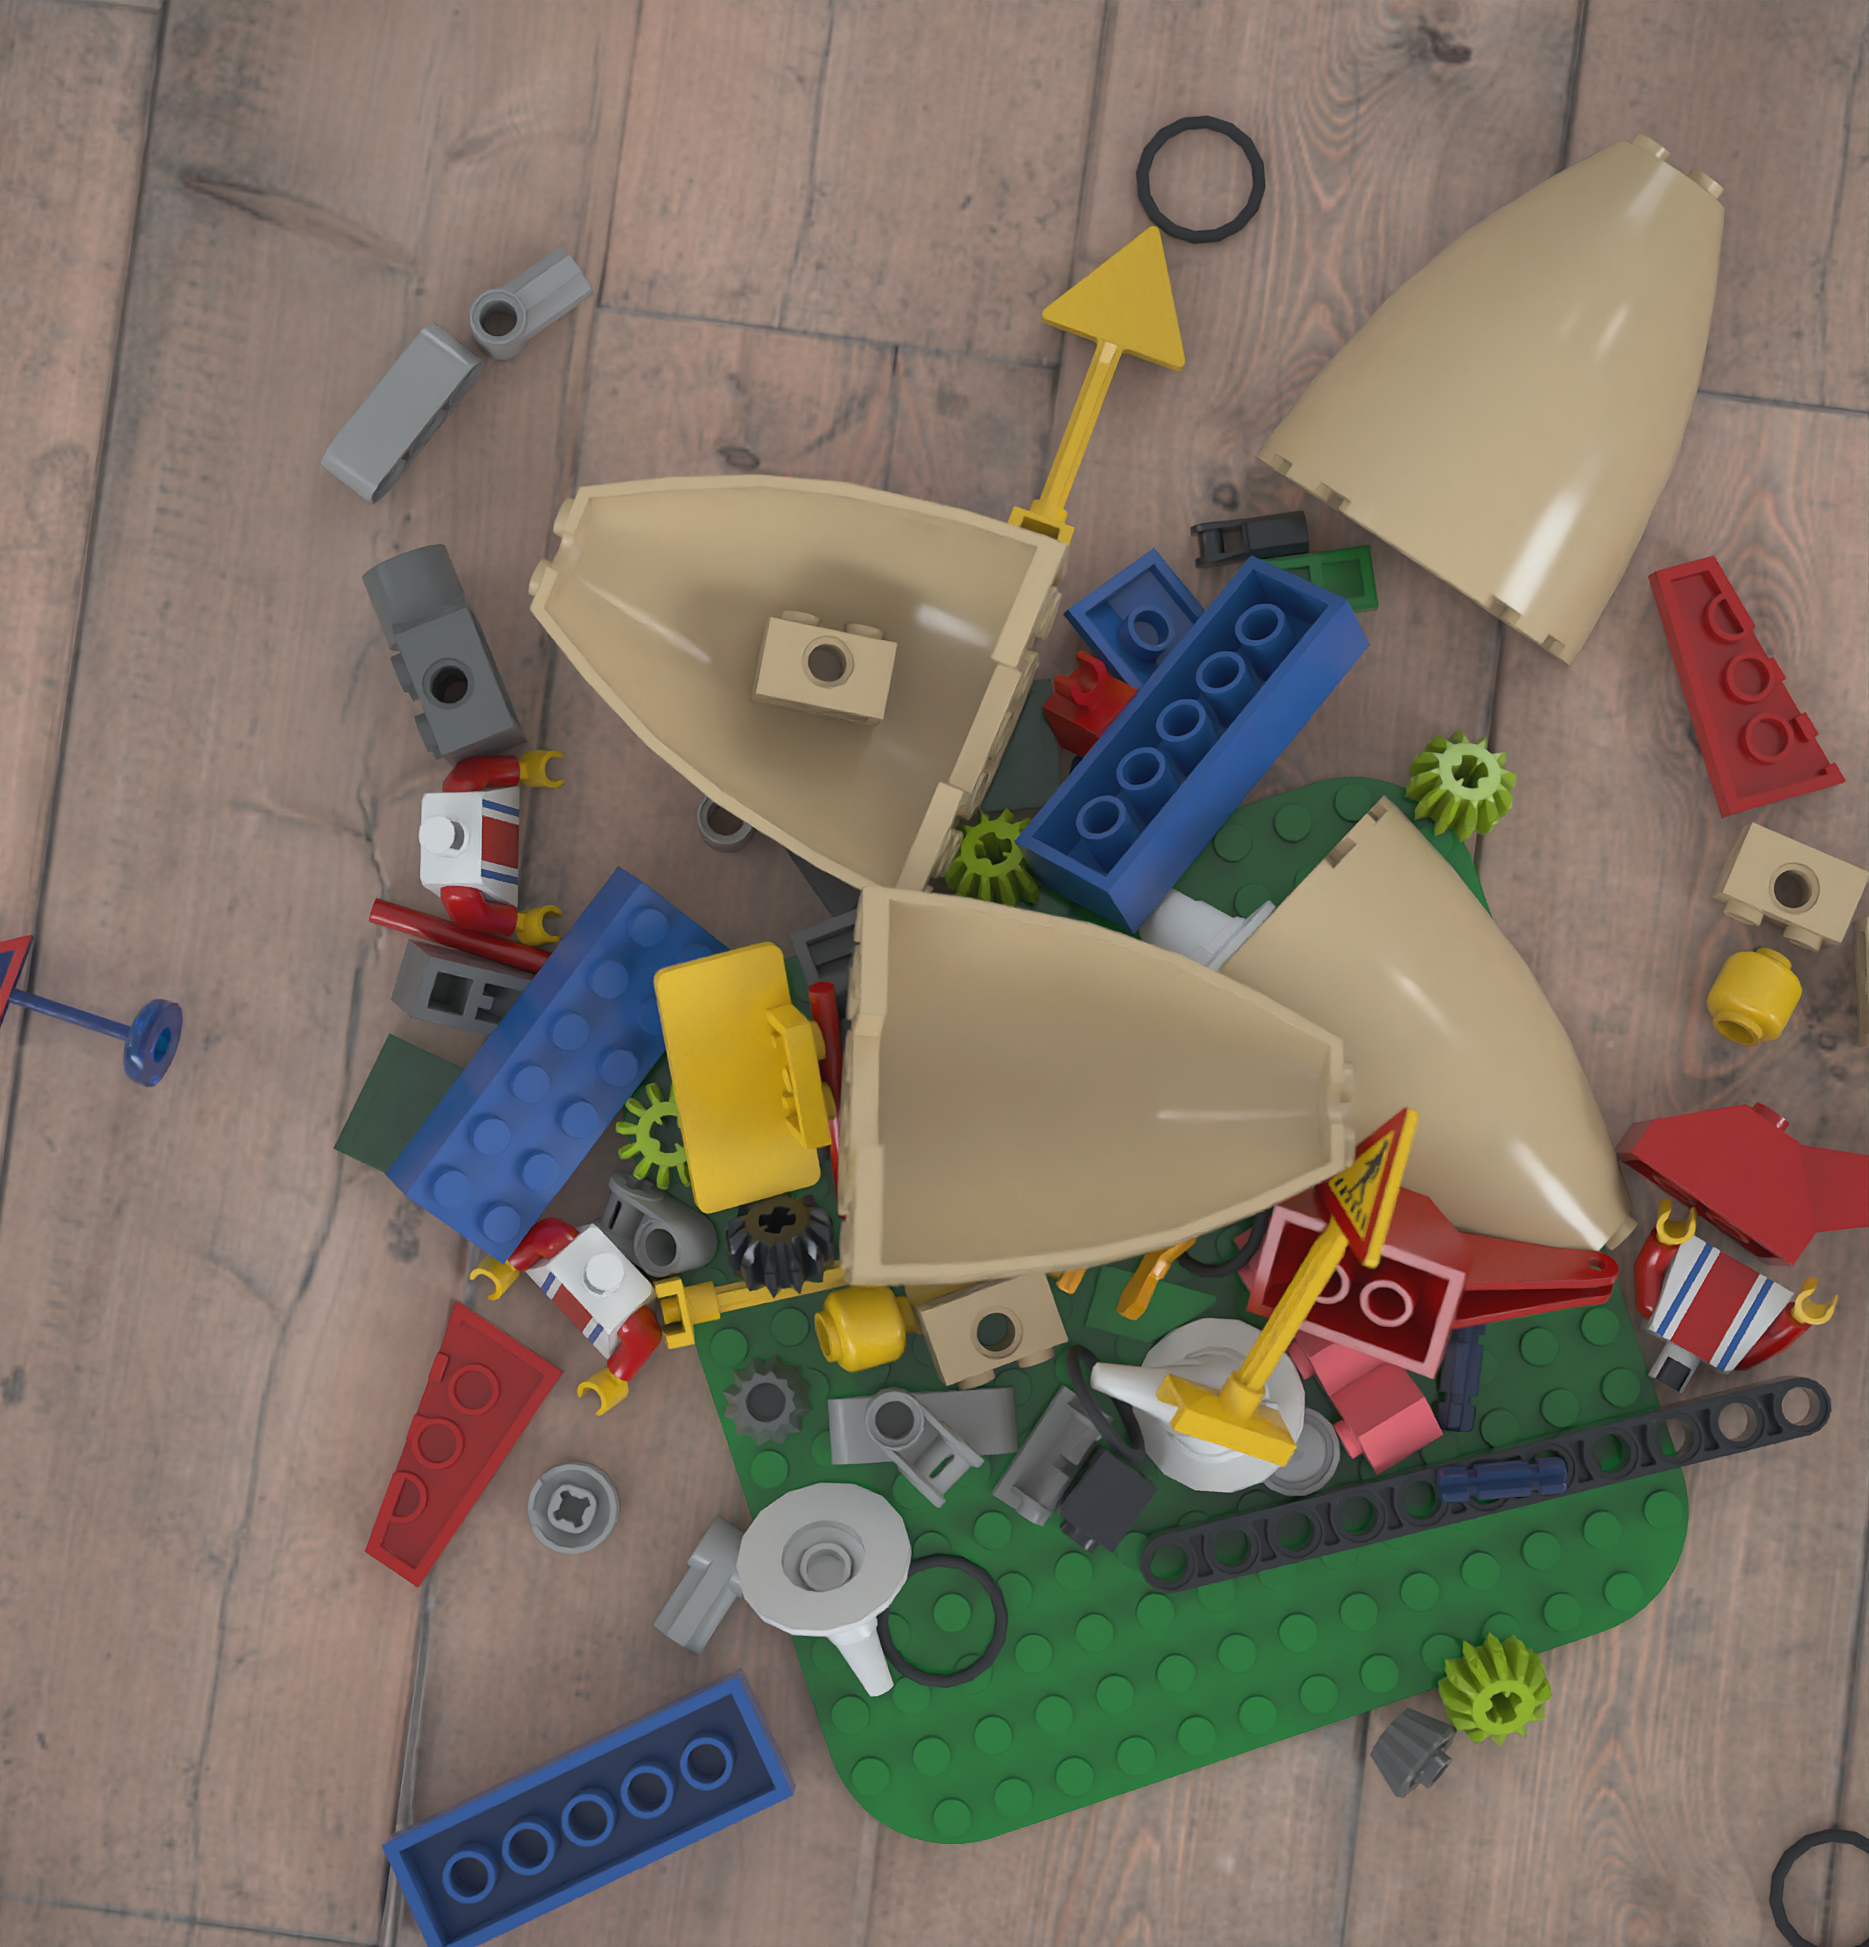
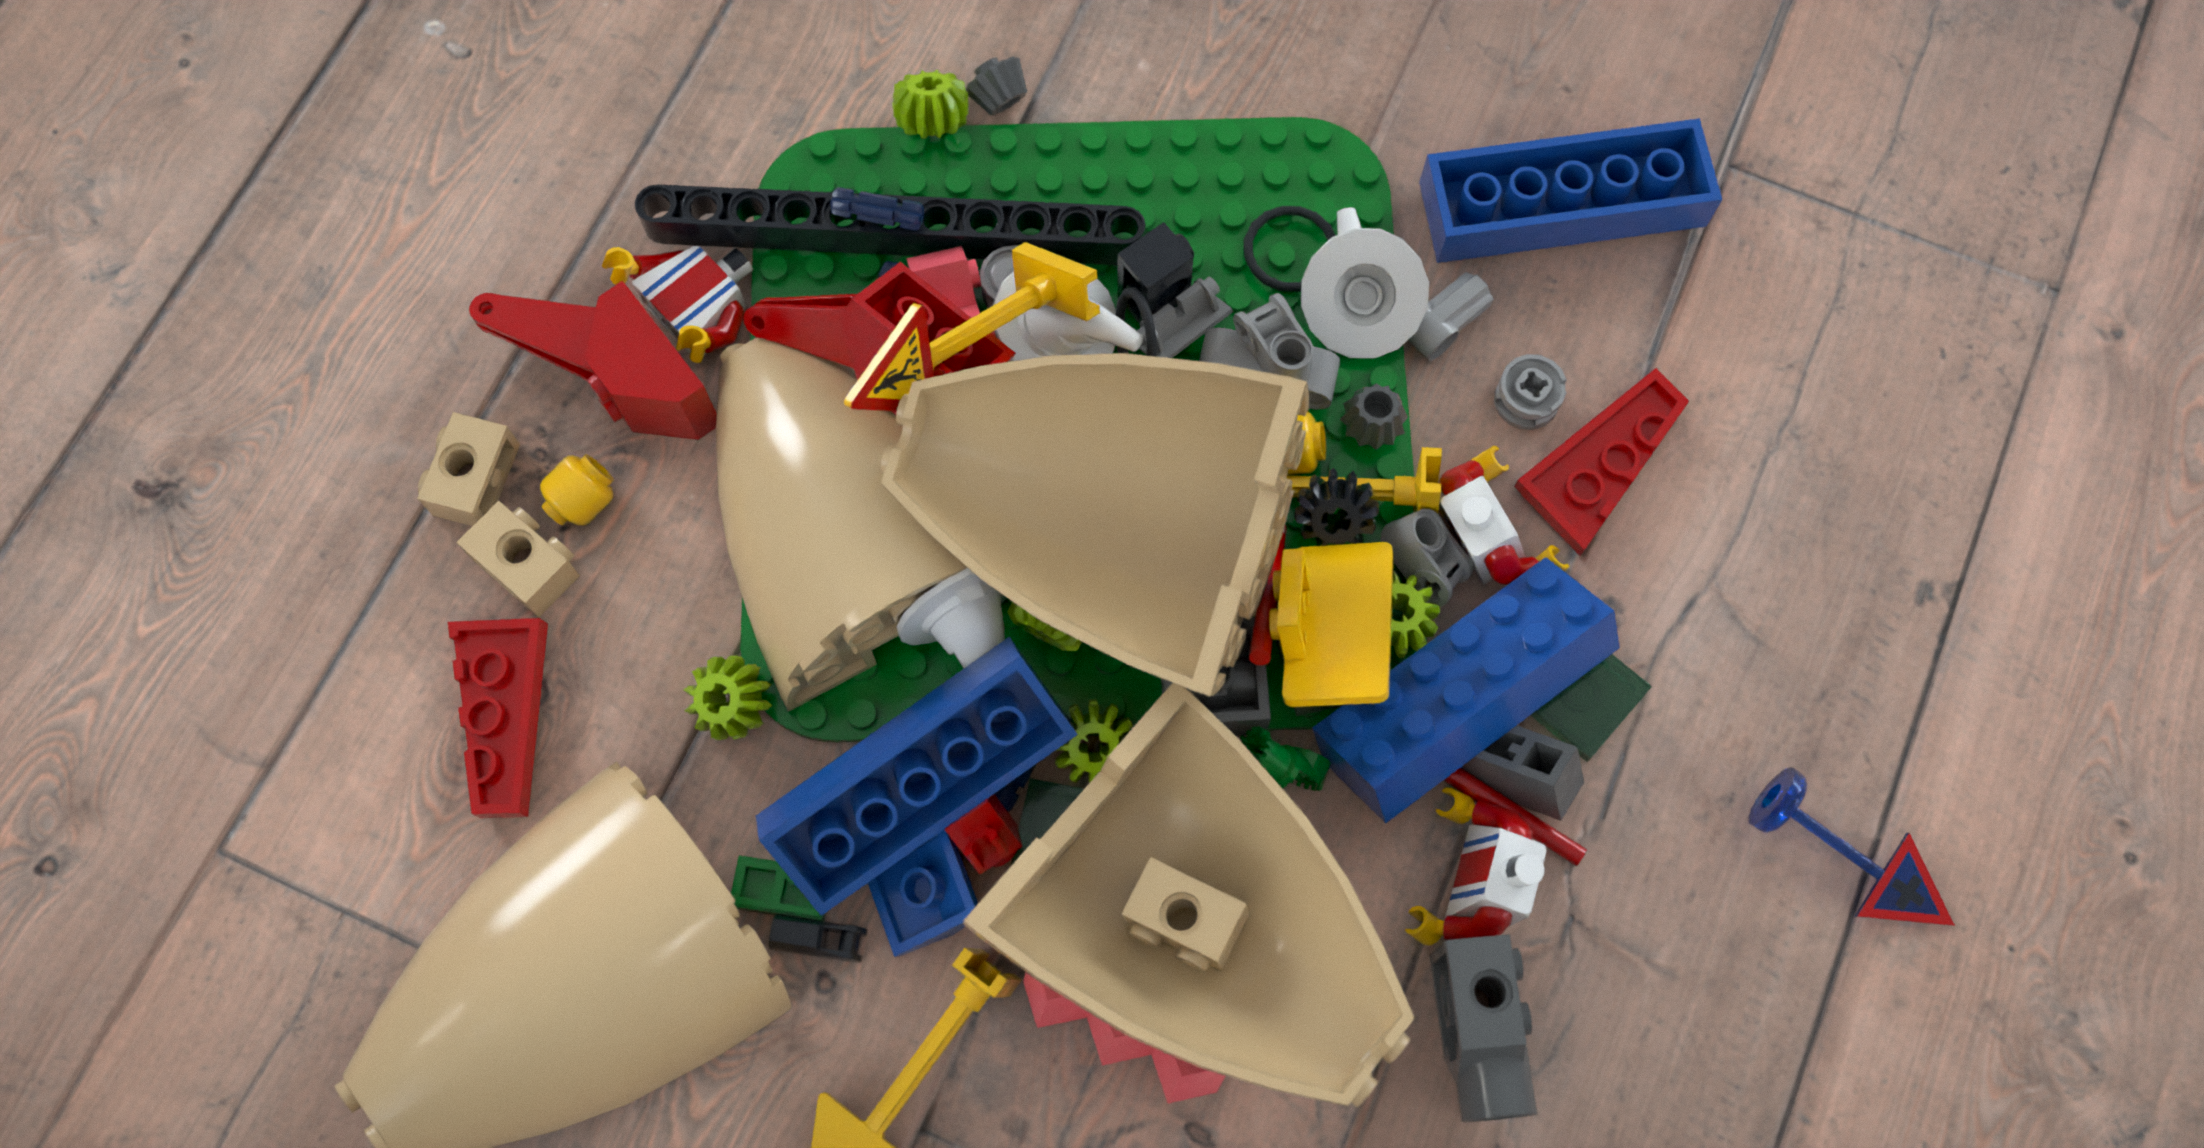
camera: 165 degrees left, 15 degrees down
(764, 902) = (1287, 762): none -> green connector

